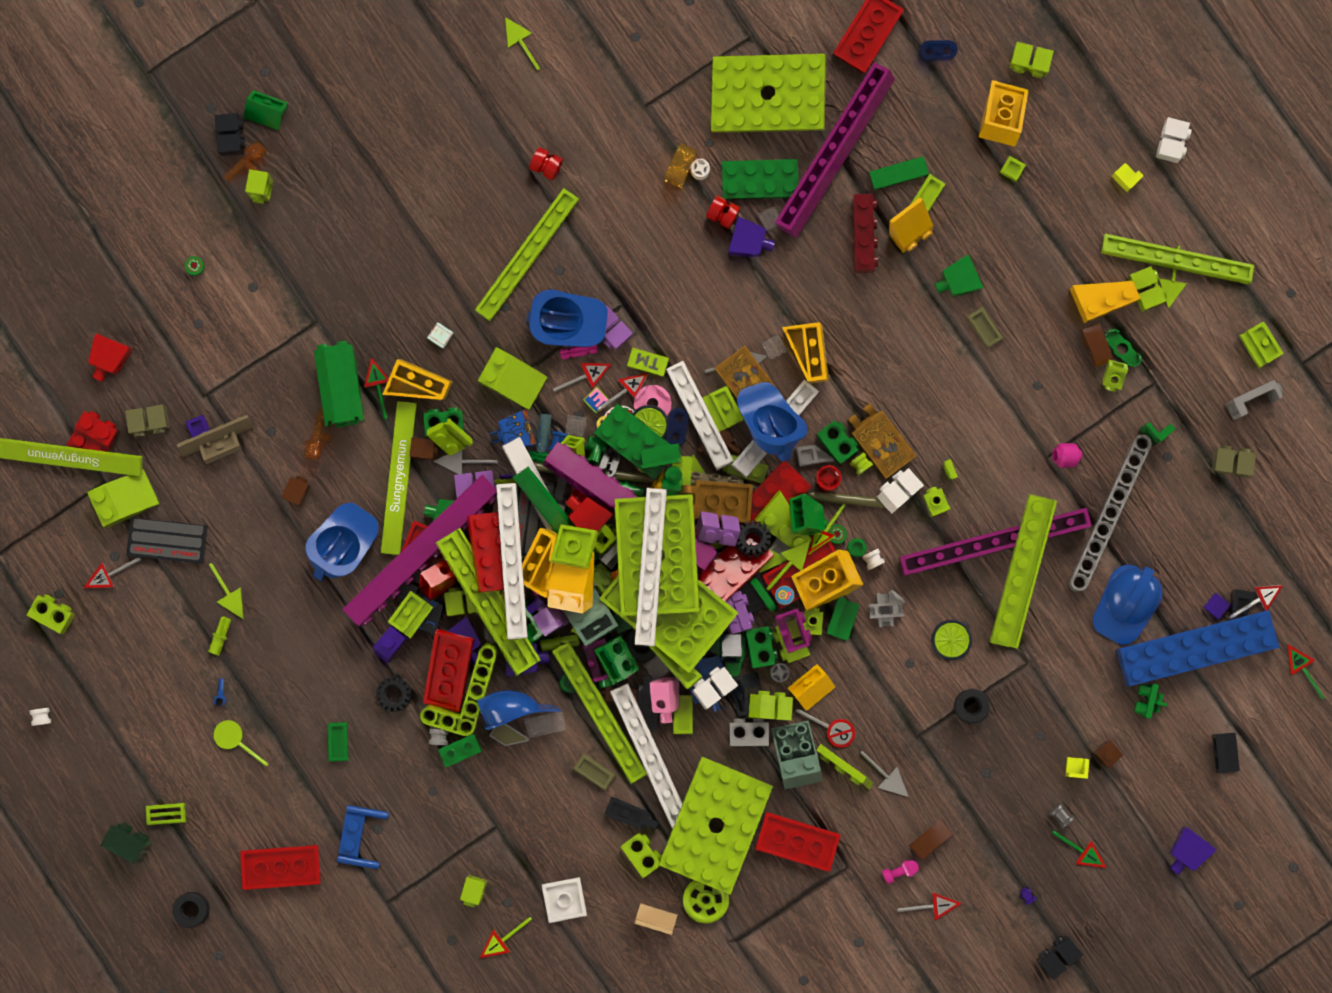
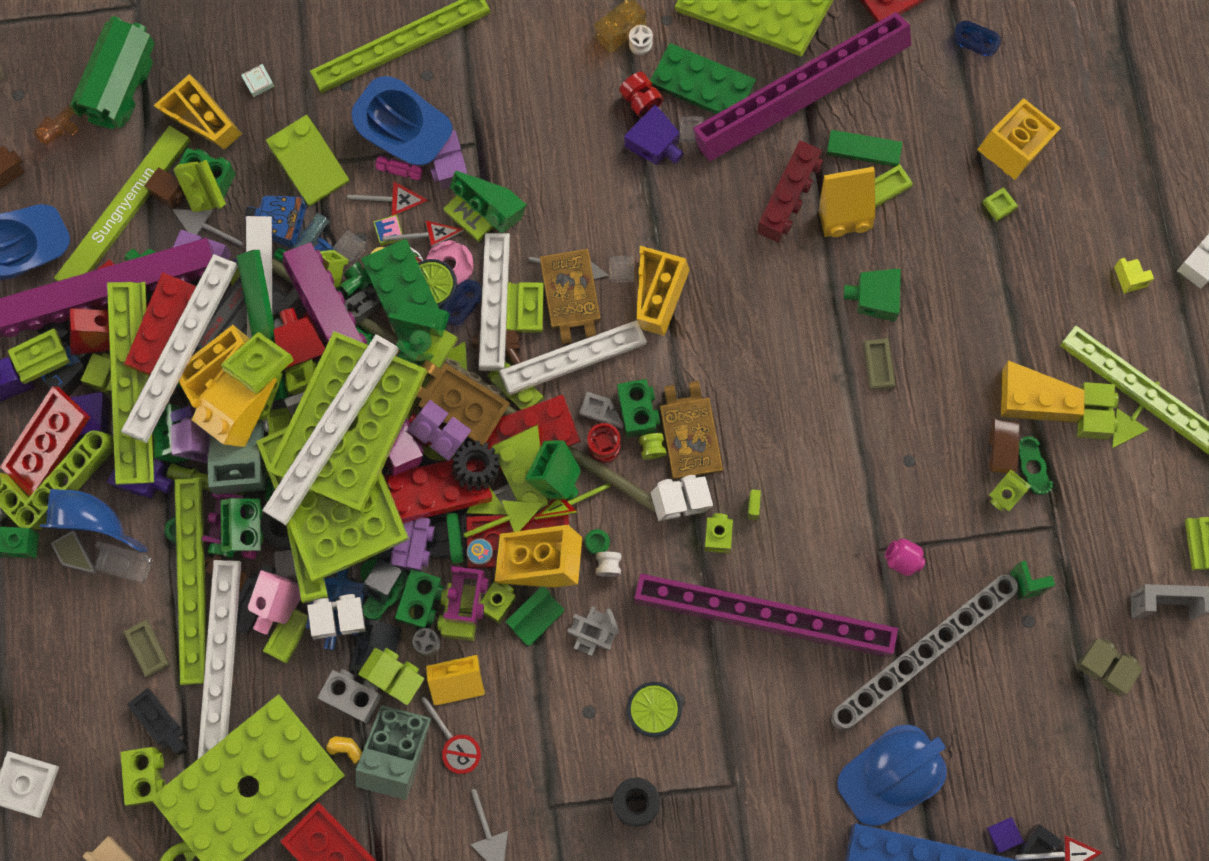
camera: 30 degrees right, 10 degrees down
(374, 378) = (156, 92): piece -> none
(662, 345) = (490, 200): none -> green slope
(763, 766) = (344, 745): none -> yellow arm
(771, 420) = (569, 339): blue piece -> none
(839, 532) = (584, 516): green tile -> none
(842, 767) = (438, 795): lime wing -> none
(1023, 571) = (781, 666): lime plate -> none
(1040, 62) = (1071, 86): lime piece -> none

